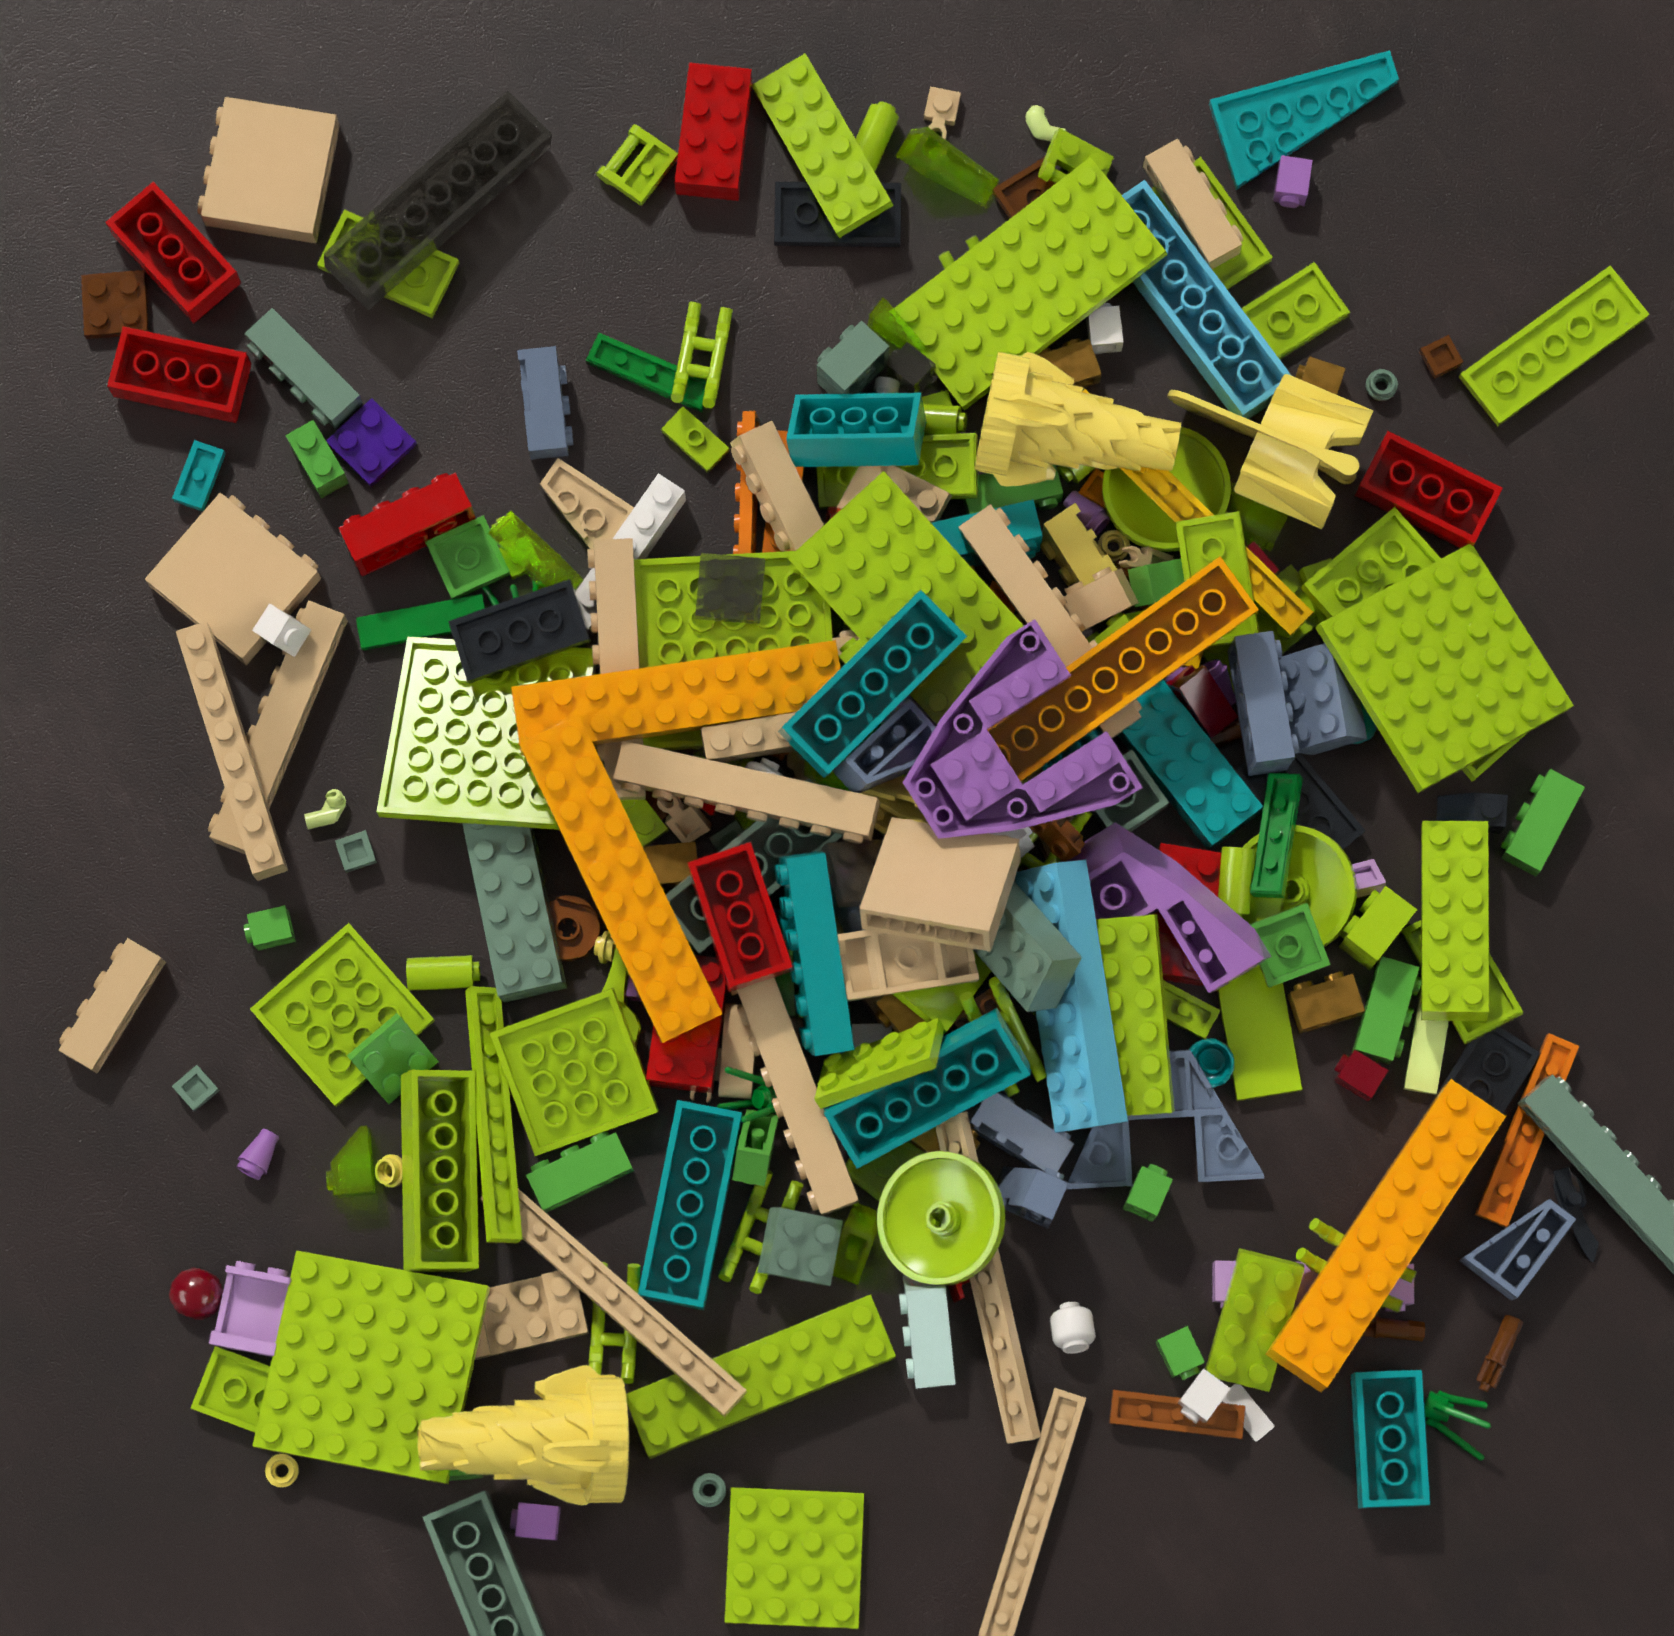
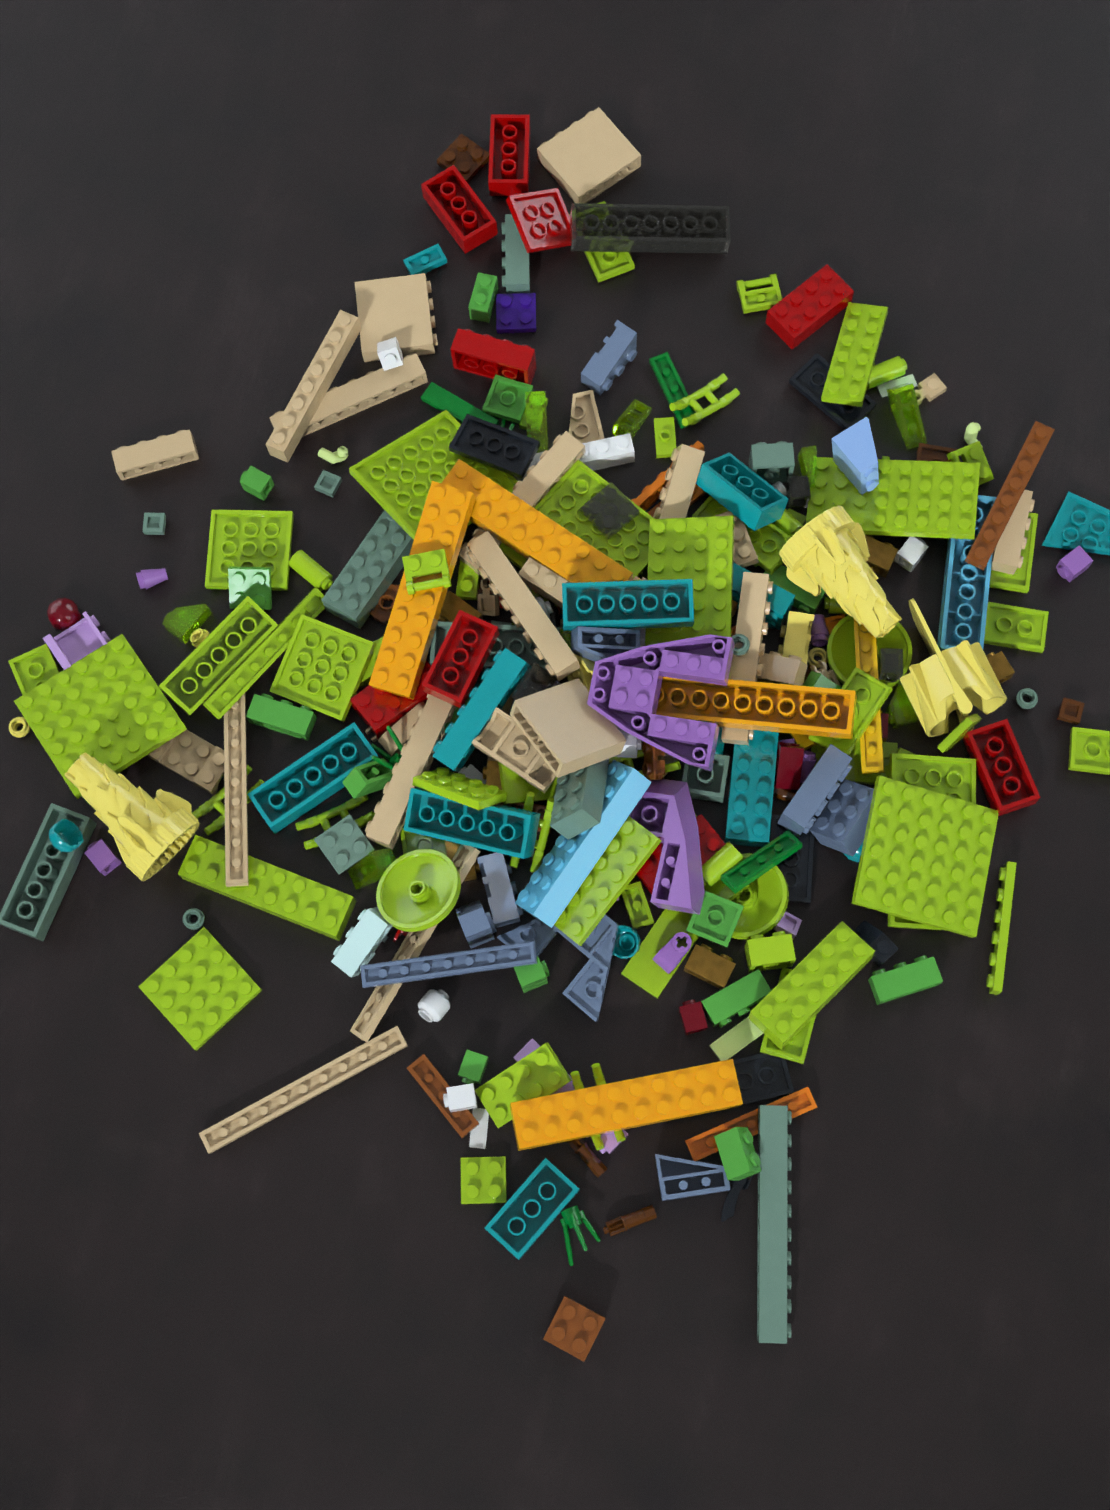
camera: 50 degrees right, 5 degrees down
(296, 301) = (541, 219): none -> red plate
(485, 1536) = (65, 836): none -> teal hair
(606, 845) = (423, 565): none -> lime plate
(637, 473) = (622, 428): none -> clear neon green slope
(904, 124) = (909, 379): none -> white sticker
(951, 272) = (856, 456): none -> light blue slope
(1035, 605) = (746, 644): none -> sand green plate
(1053, 1267) = (448, 964): none -> sand blue tile
(1158, 167) = (1009, 495): none -> dark orange plate
(1208, 483) = (890, 664): none -> clear smoke brick
(1275, 1030) = (670, 955): none -> medium lavender piece
(1306, 1461) = (483, 1180): none -> lime plate
(1352, 499) = (959, 732): none -> lime tile
(1549, 1173) = (738, 1153): none -> bright green brick
(1551, 1519) = (574, 1328): none -> dark orange brick
(1596, 680) = (1000, 936): none -> lime plate

